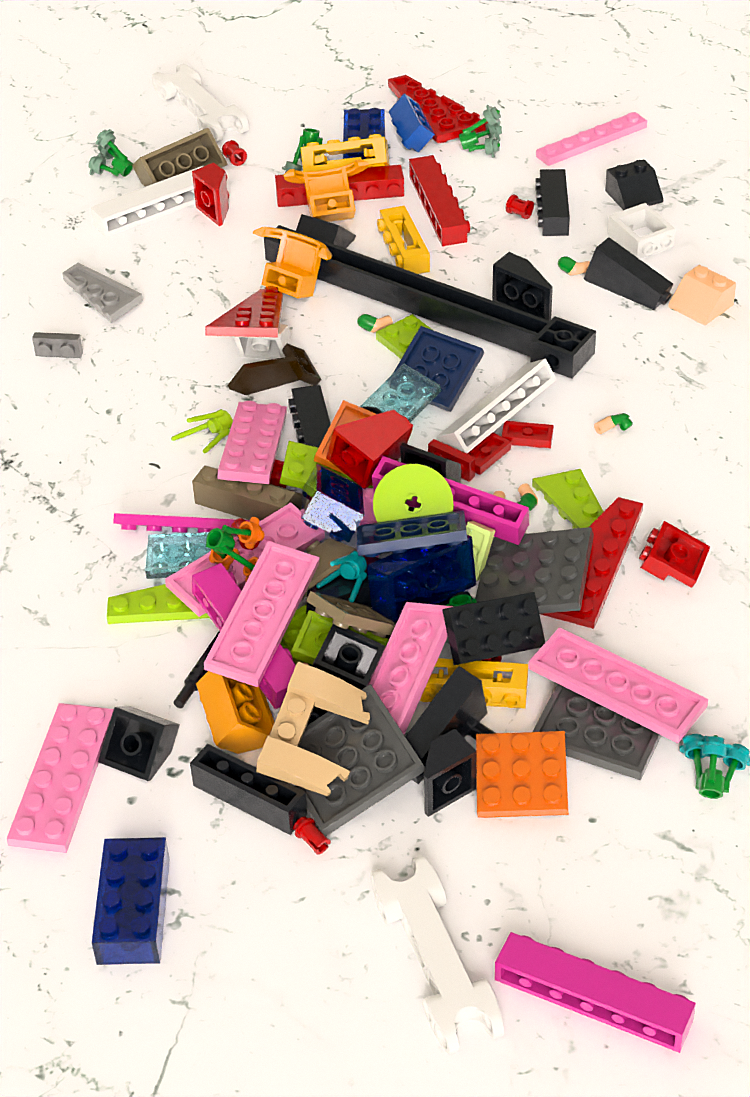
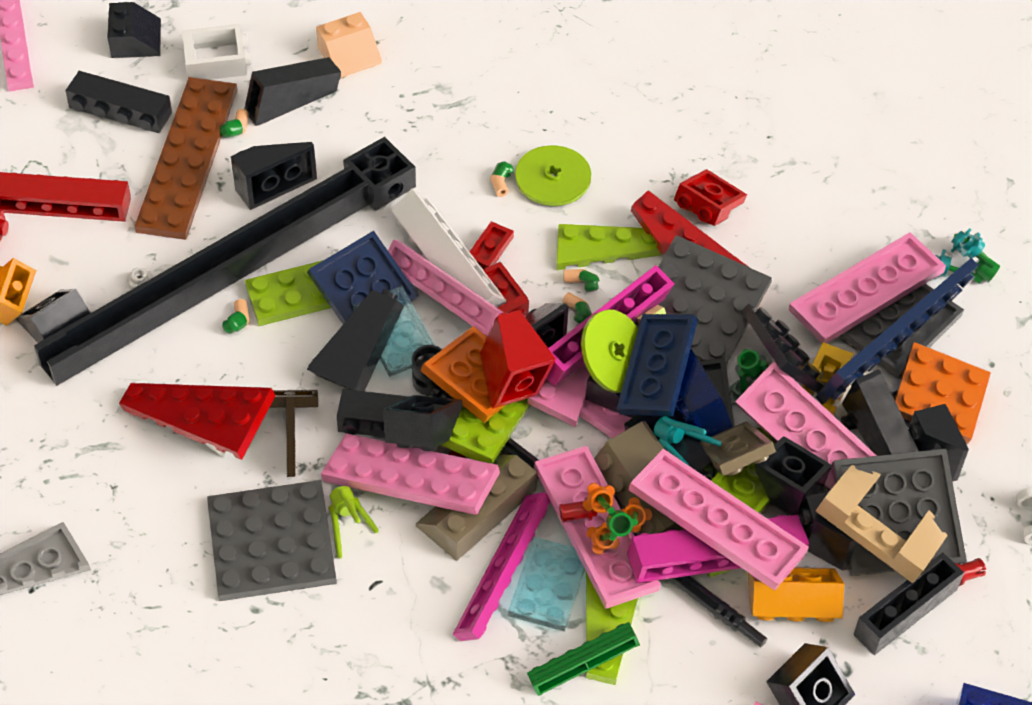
camera: 75 degrees left, 10 degrees up
(57, 345) = (111, 638): flat silver plate -> none
(114, 586) = (583, 658): none -> green piece
(167, 396) = (271, 540): none -> dark grey plate
(294, 421) = (421, 421): none -> black slope
(296, 262) = (116, 350): light orange piece -> none
(332, 504) = (565, 422): brick -> none
(366, 377) = (359, 343): none -> black slope
(391, 224) = (108, 247): yellow brick -> none
(451, 413) = (444, 288): none -> bright pink plate
(519, 206) = (107, 132): red bush -> none
(541, 250) = (186, 159): none -> dark orange plate
(564, 705) = (897, 333): none -> dark blue plate
(639, 454) = (536, 180): none -> lime piece

